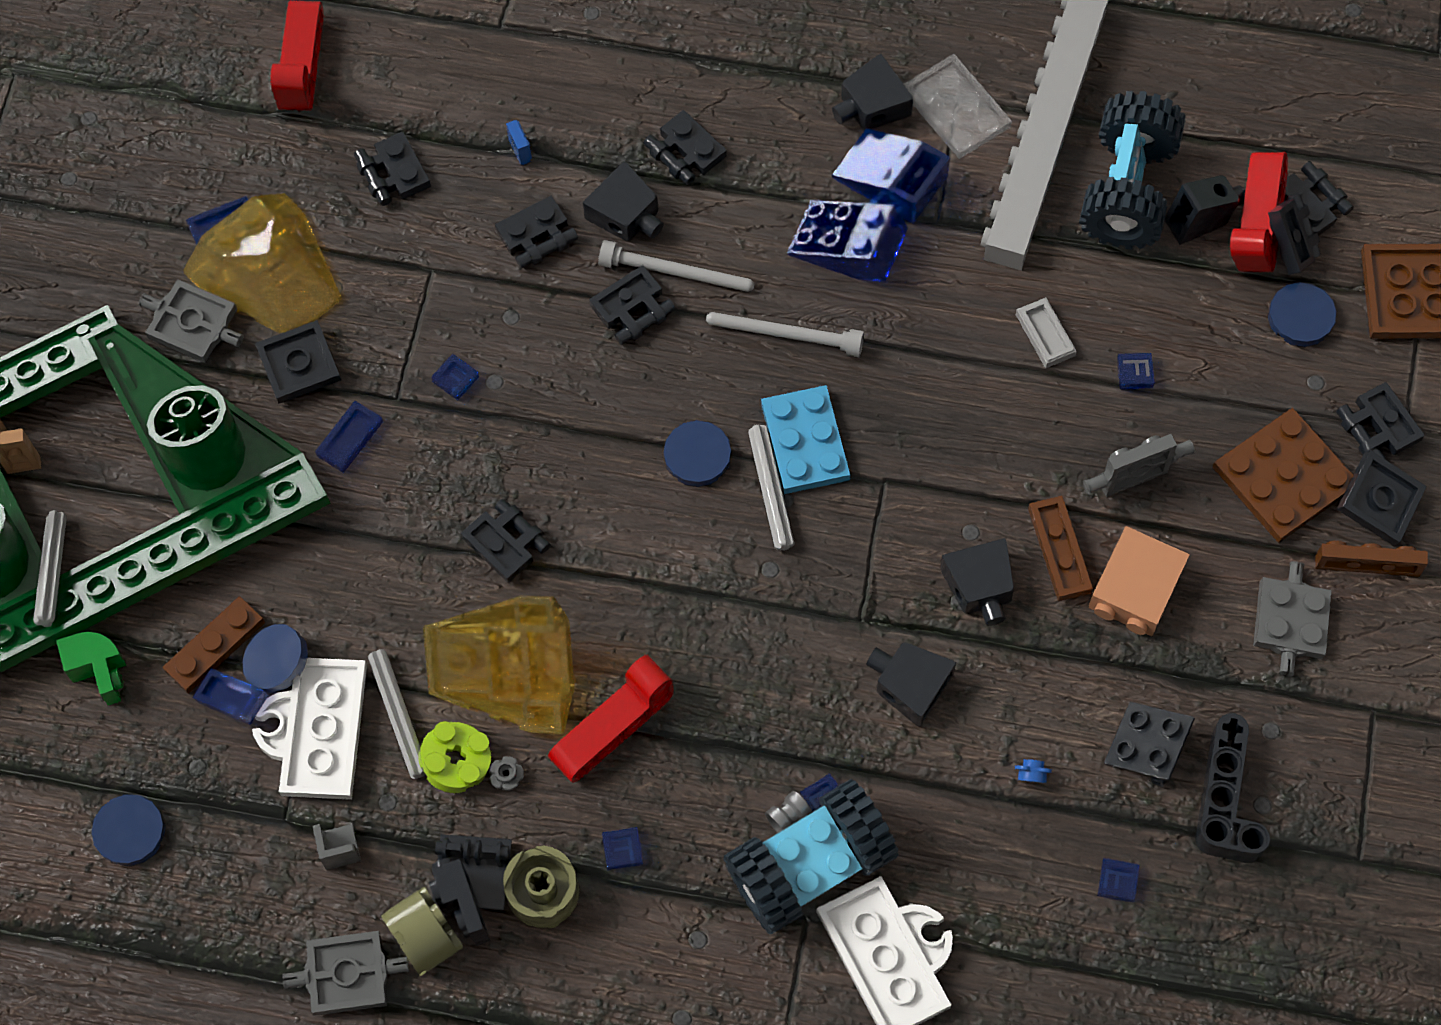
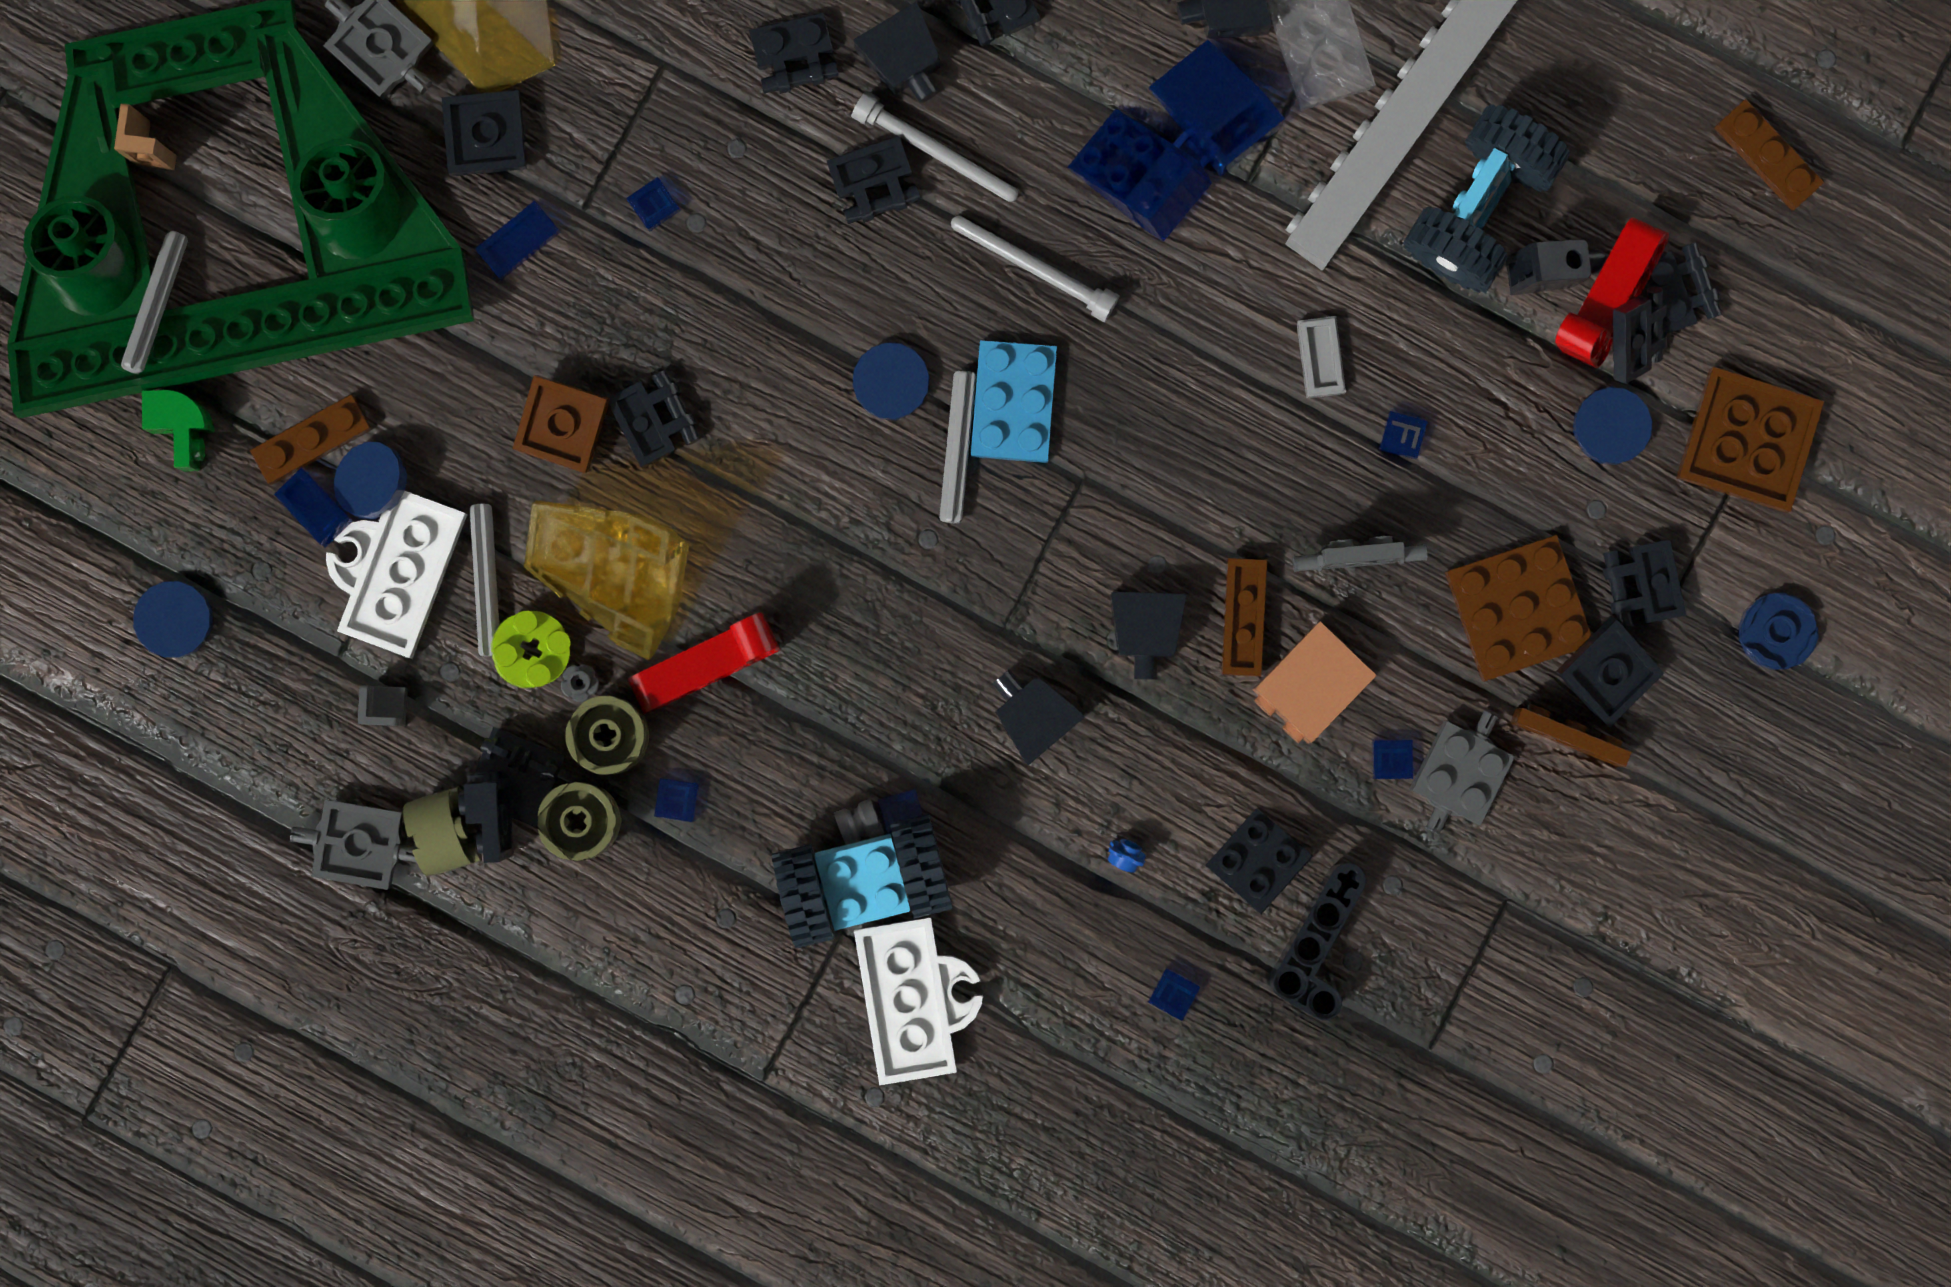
camera: 15 degrees right, 20 degrees up
(428, 564) = (561, 423): none -> reddish brown plate
(559, 791) = (590, 721): none -> olive brick
(1229, 626) = (1392, 759): none -> clear blue tile
(1339, 86) = (1769, 155): none -> reddish brown plate

